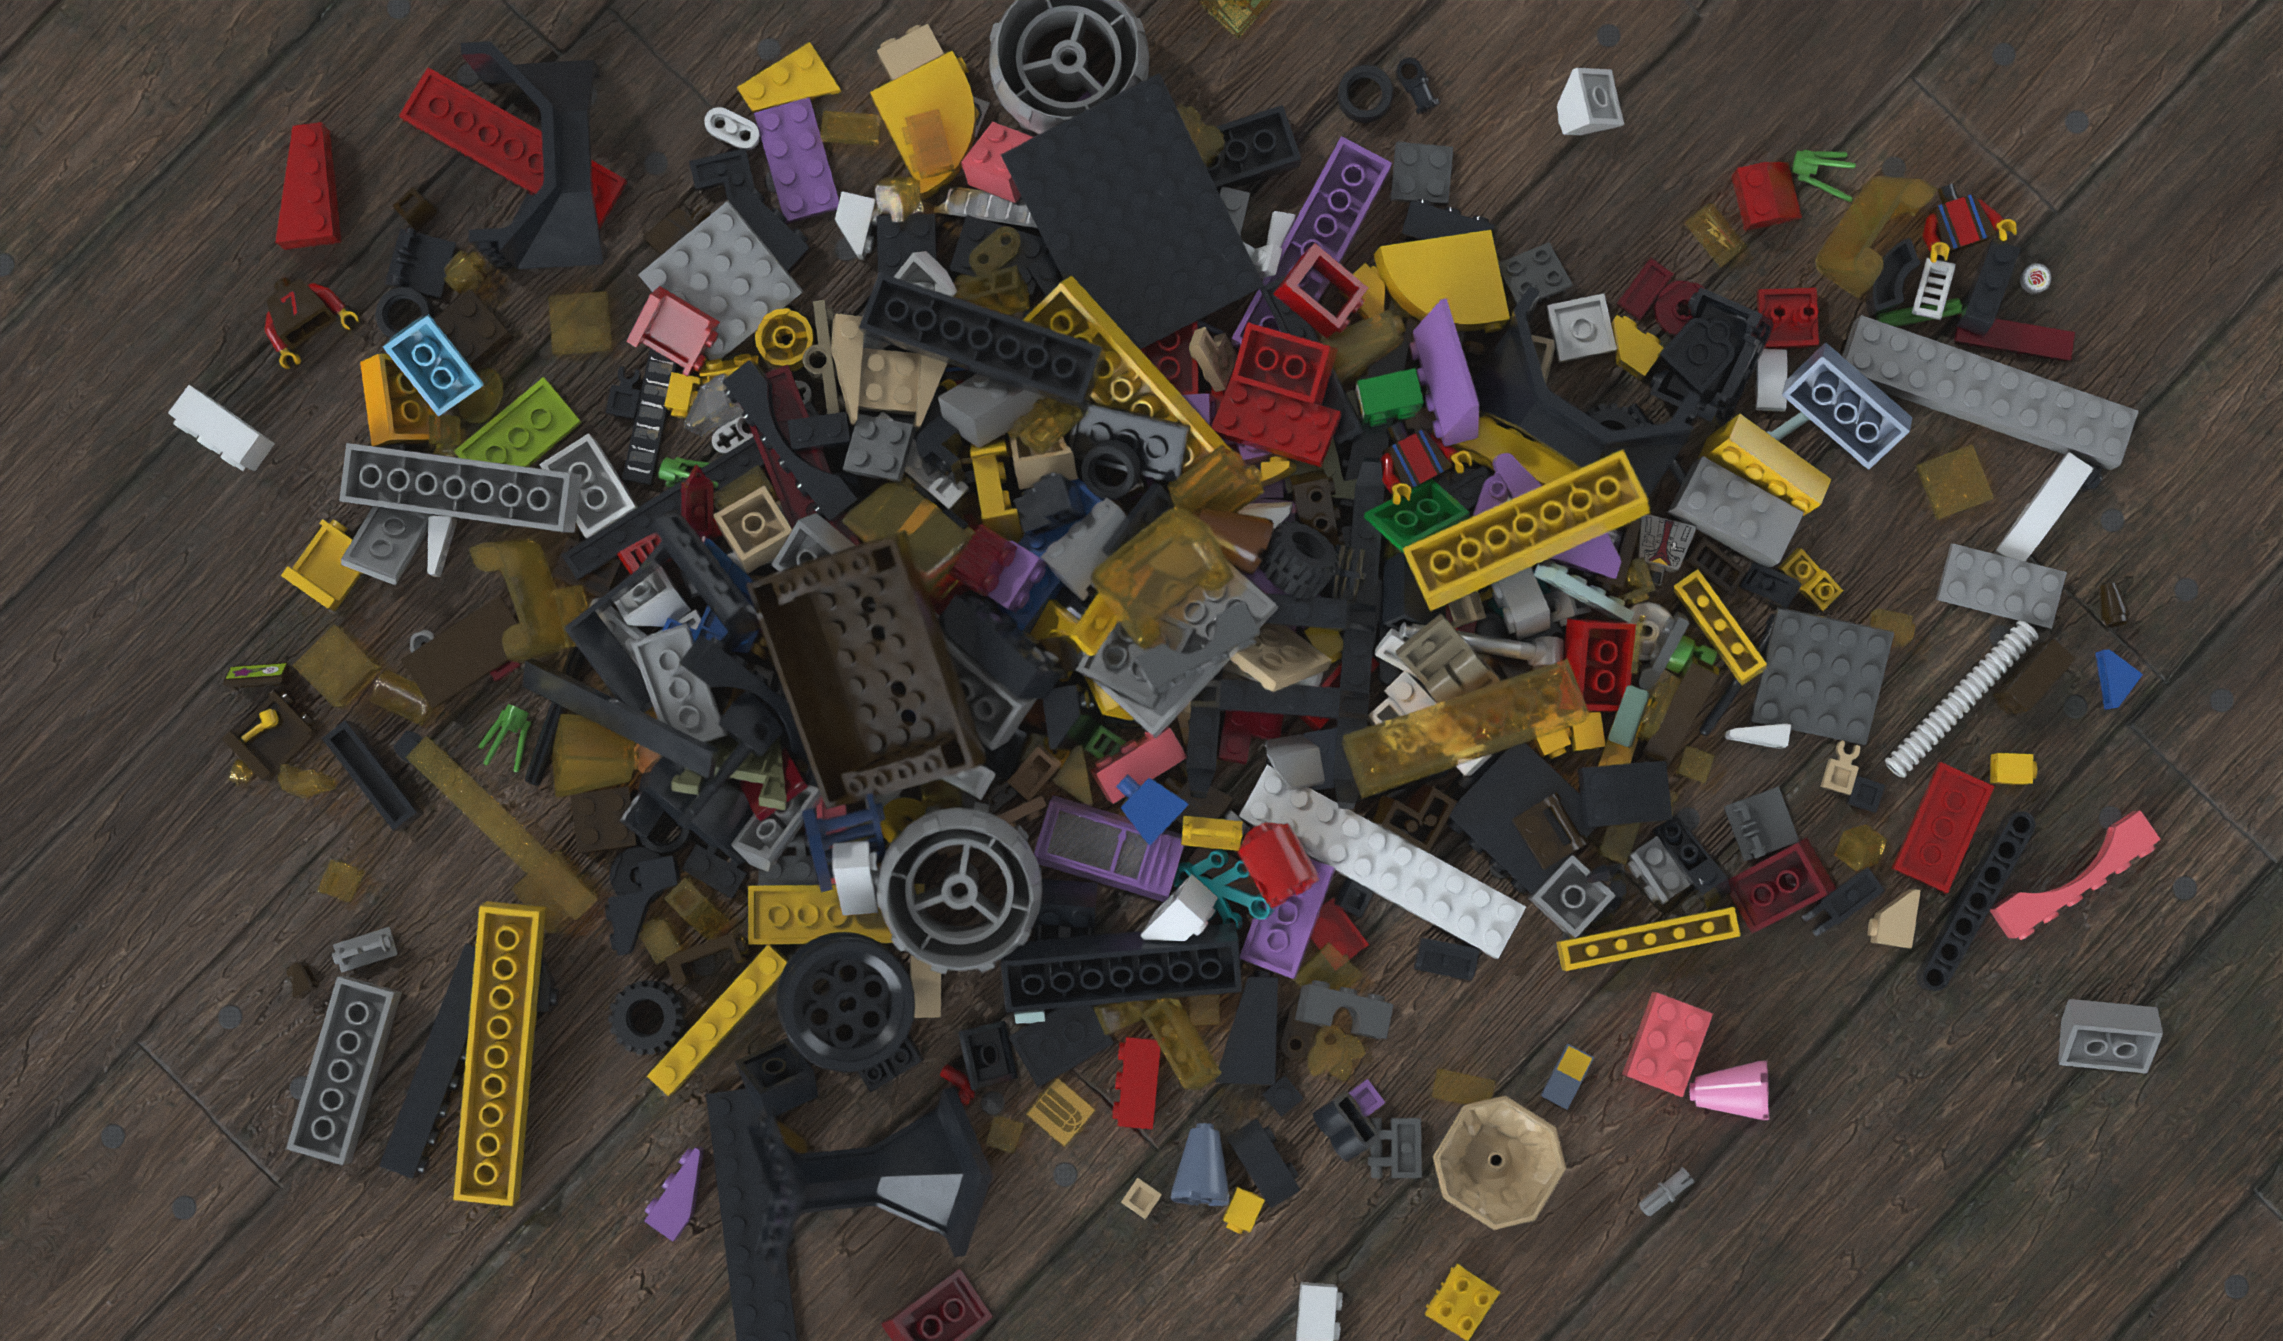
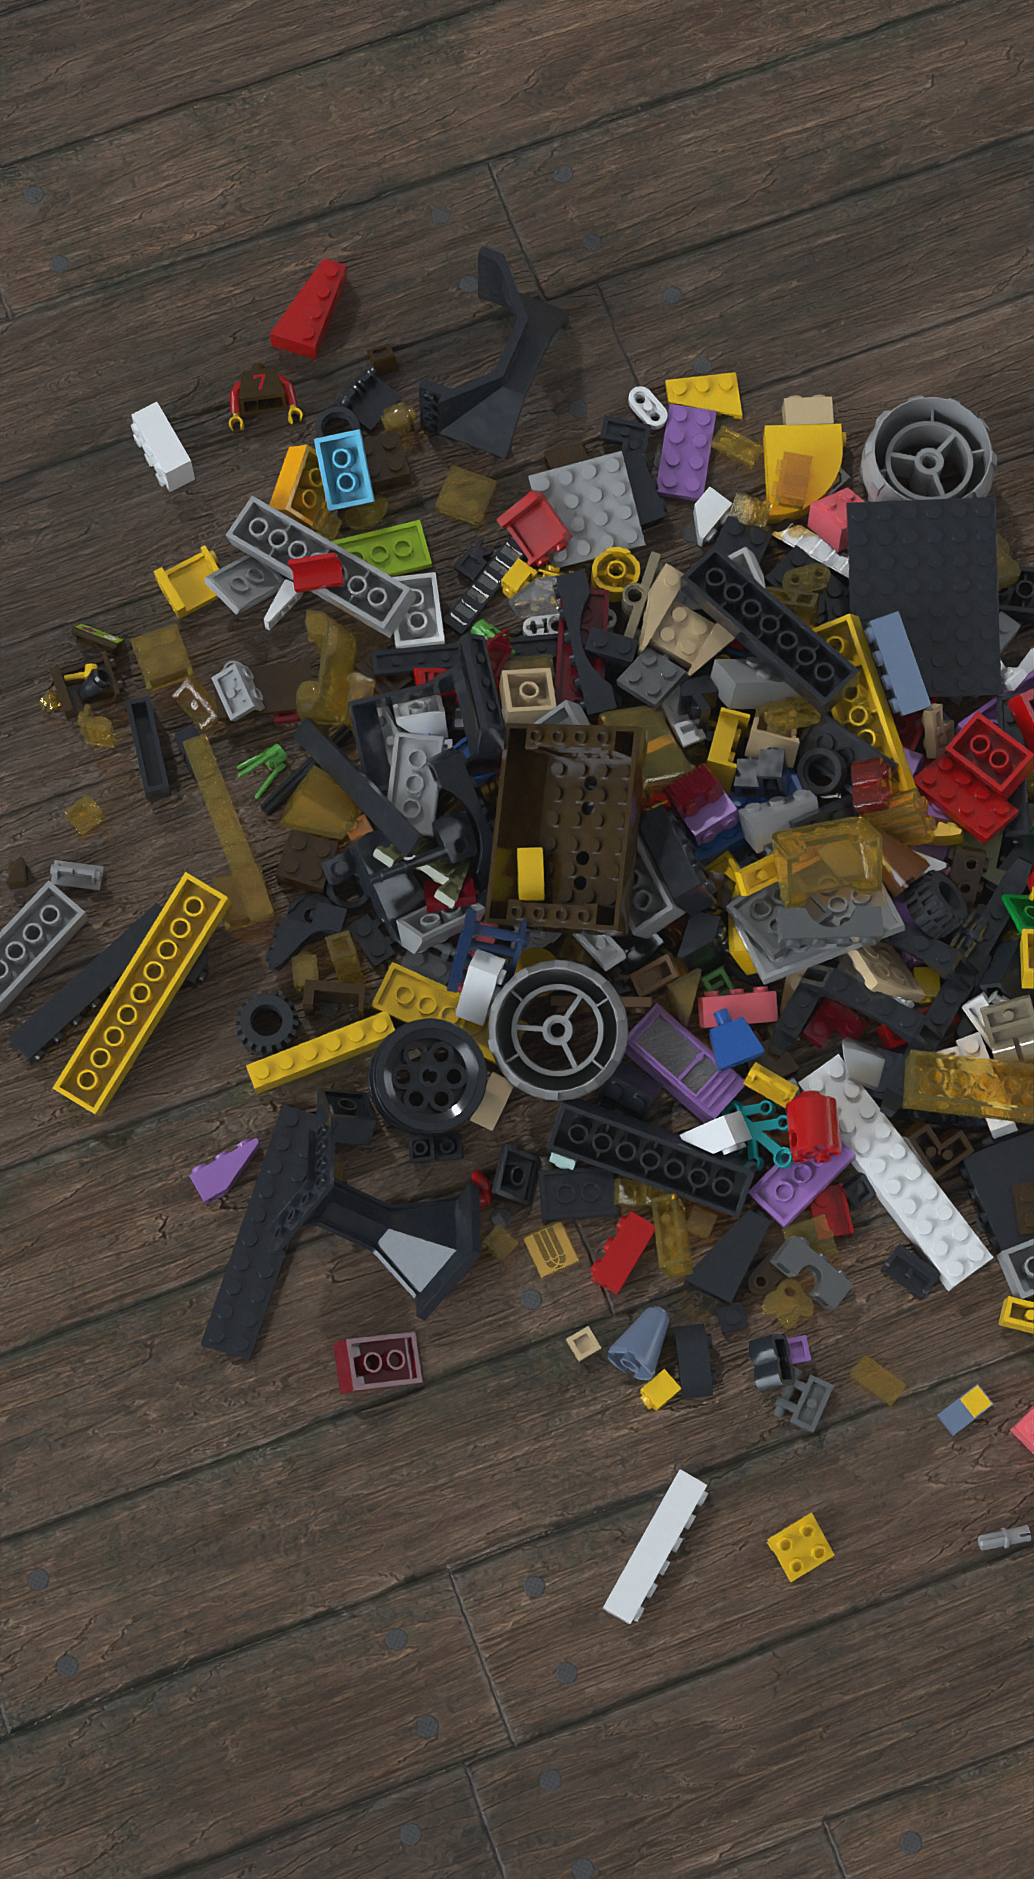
camera: 20 degrees right, 10 degrees down
(279, 731) = (95, 683): none -> black cone
(439, 669) = (238, 691): none -> light grey bracket
(460, 502) = (316, 572): none -> red panel
(493, 137) = (466, 333): red plate -> none
(851, 732) = (530, 874): none -> yellow slope
(1139, 311) = (897, 664): none -> sand blue brick
(1171, 466) = (871, 785): none -> clear red brick
(1528, 1166) = (907, 1437): tan rock -> none

